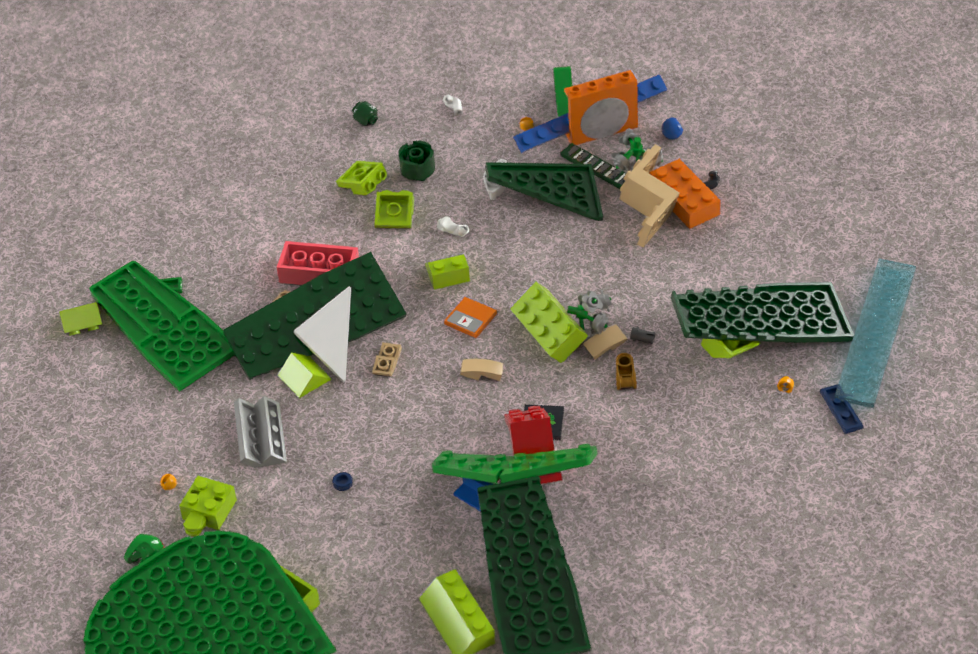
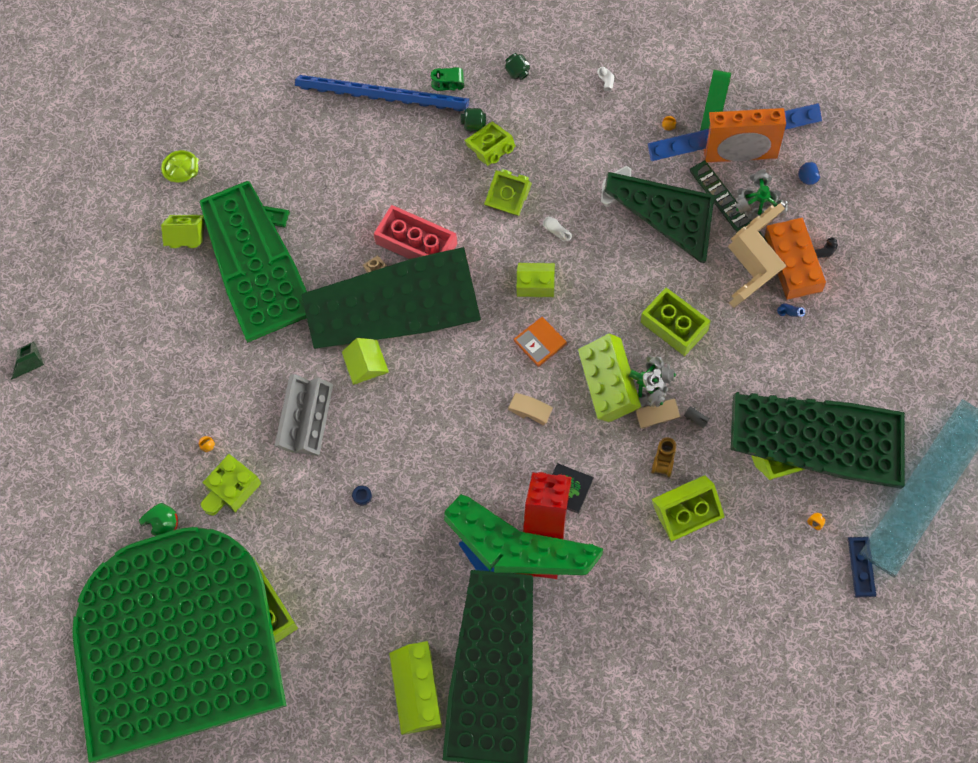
camera: 20 degrees right, 20 degrees up
(57, 268) = (180, 166): none -> lime piece
(231, 166) = (388, 93): none -> blue plate
(301, 138) = (448, 78): none -> green piece
(328, 333) = (398, 325): white tile -> none
(338, 162) = (473, 119): none -> dark green head
(387, 359) = (446, 367): tan slope -> none
(416, 160) = (547, 140): dark green brick -> none
(593, 266) = (675, 321): none -> lime brick
(663, 404) = (688, 507): none -> lime slope
(697, 234) = (790, 310): none -> blue arm

